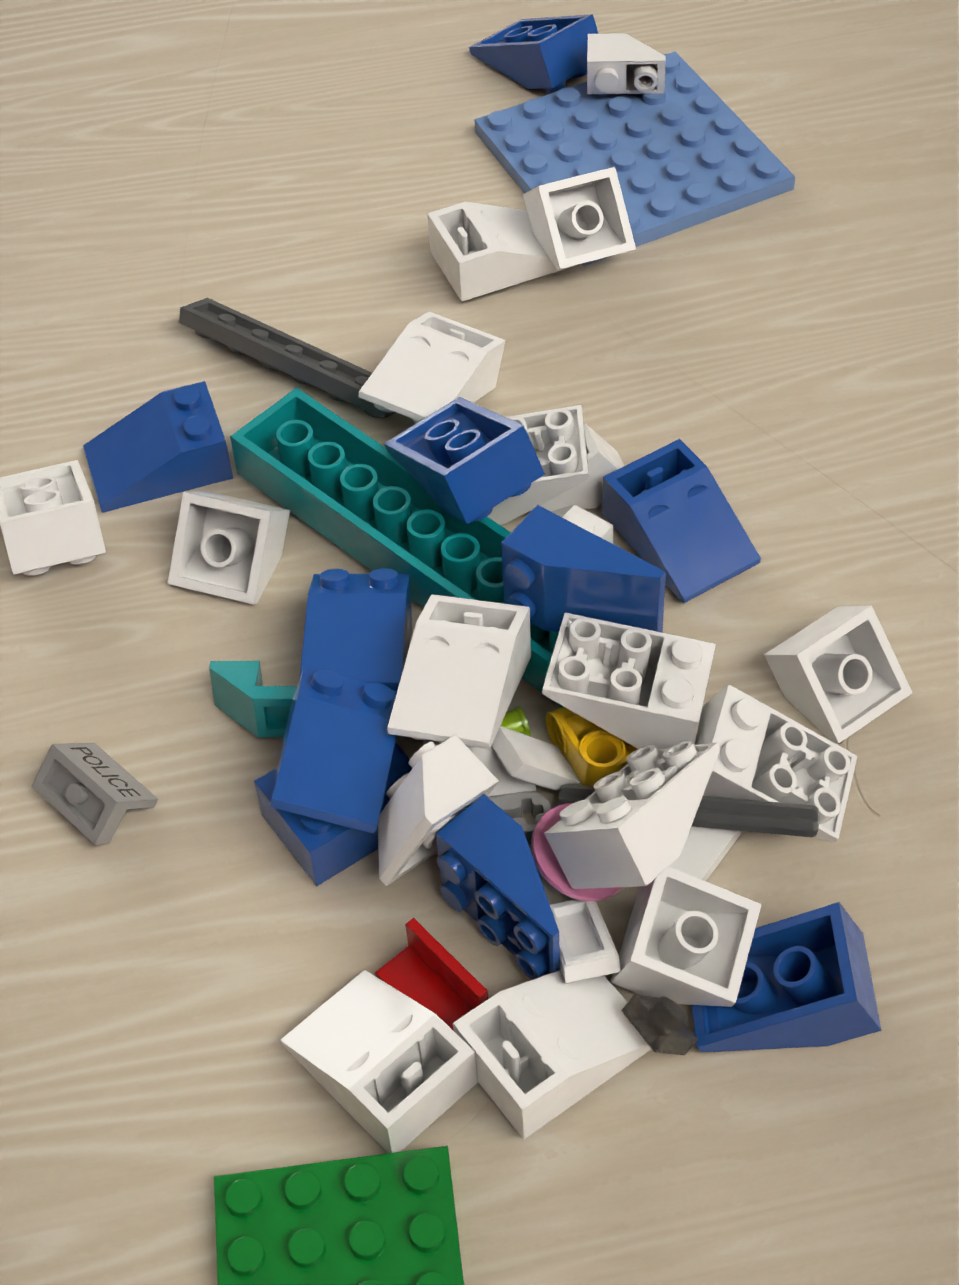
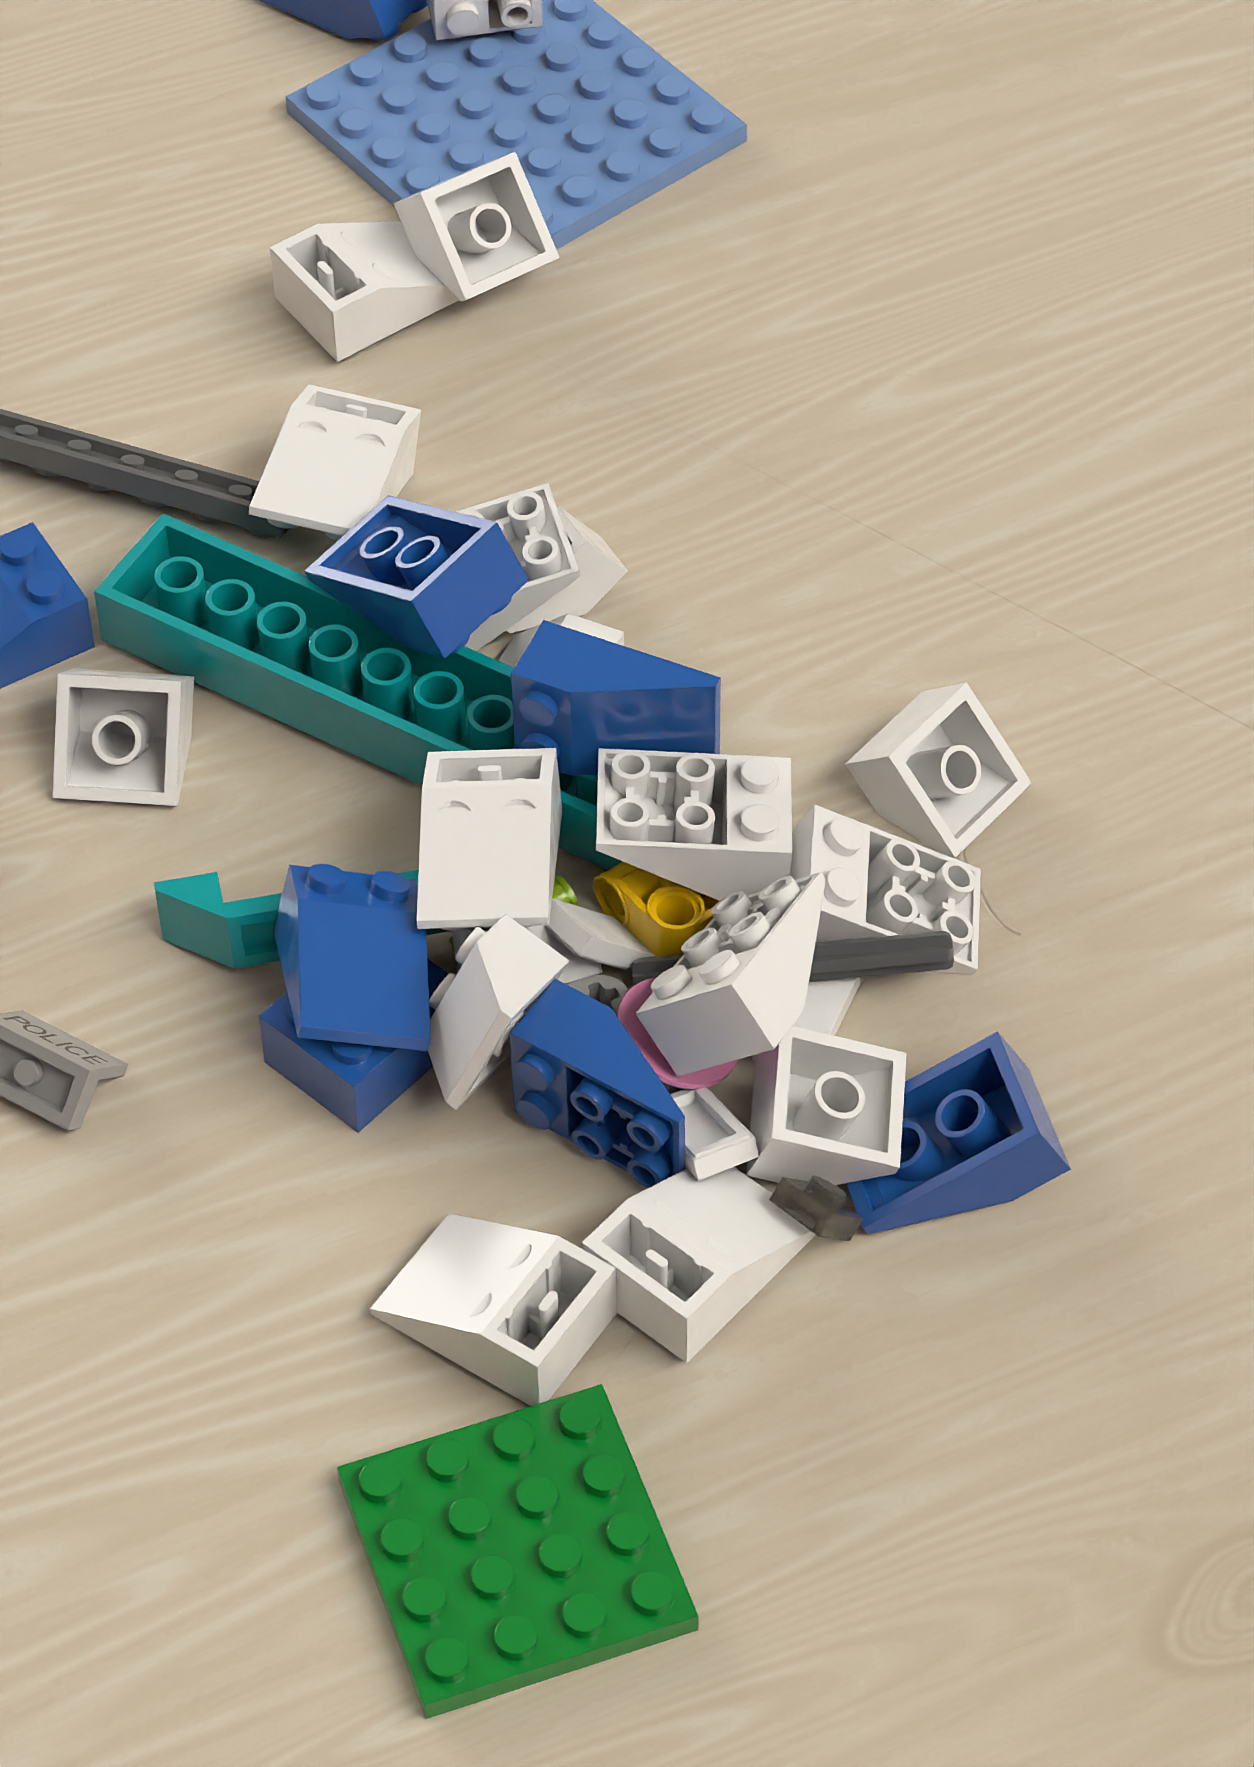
camera: 15 degrees left, 0 degrees up
(359, 625) = (333, 805): blue slope -> none
(432, 976) = (537, 1198): red panel -> none
(678, 520) = (700, 606): blue slope -> none

